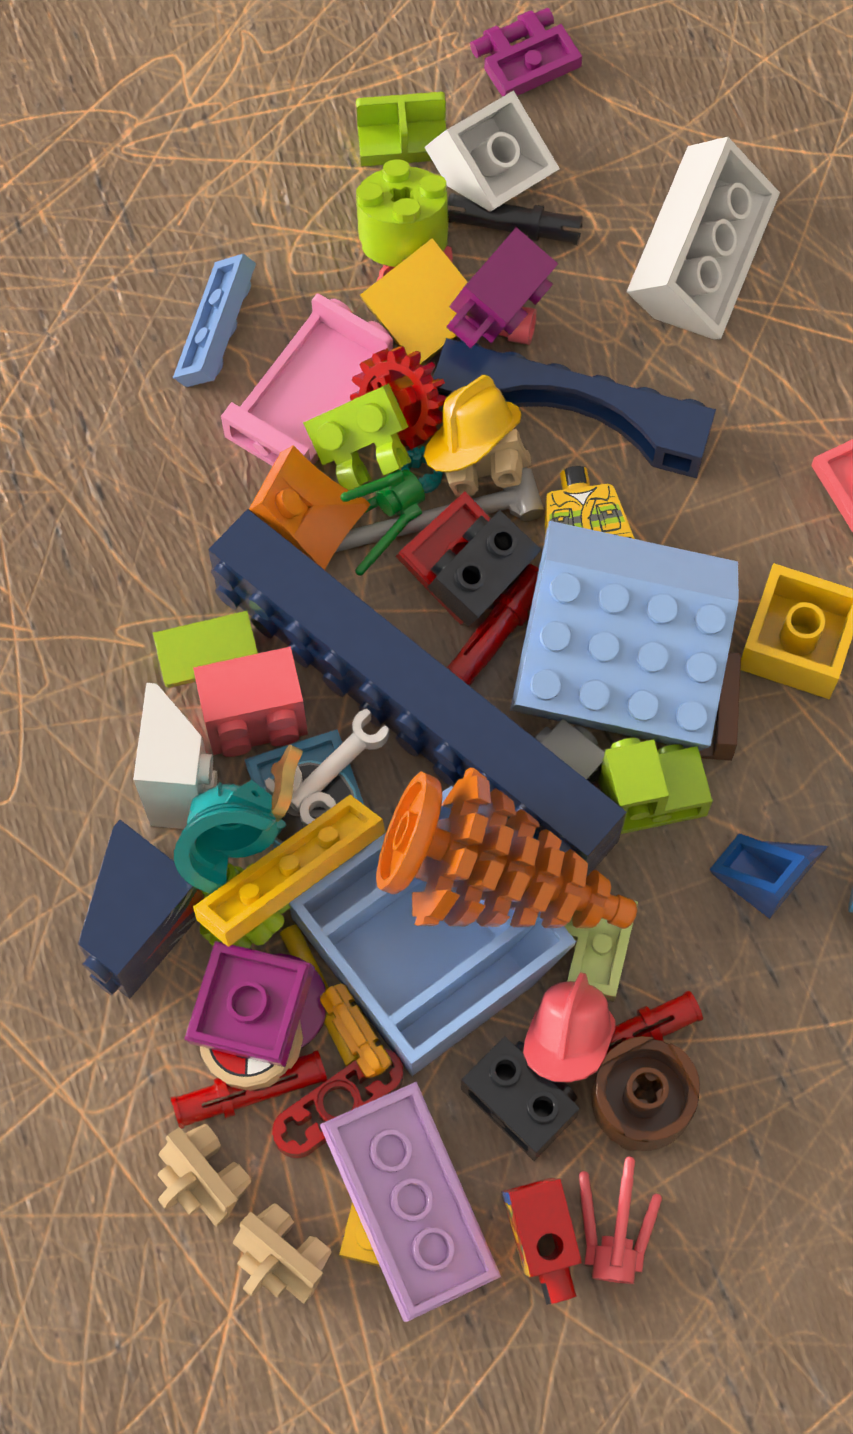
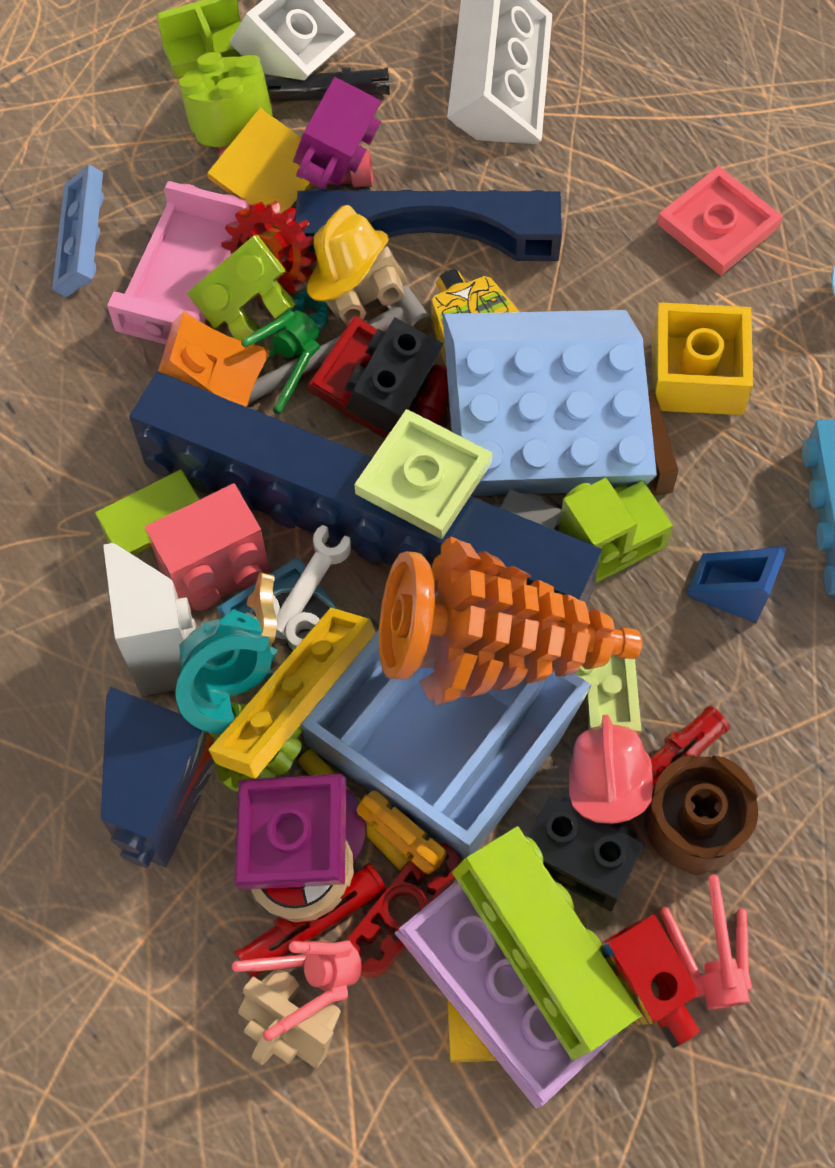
camera: 15 degrees left, 5 degrees down
(248, 1137) = (325, 967): none -> coral plant
(274, 1261) = (387, 1084): tan hips -> none
(456, 1173) = (547, 943): none -> lime brick
(474, 689) = (423, 473): none -> yellowish green plate

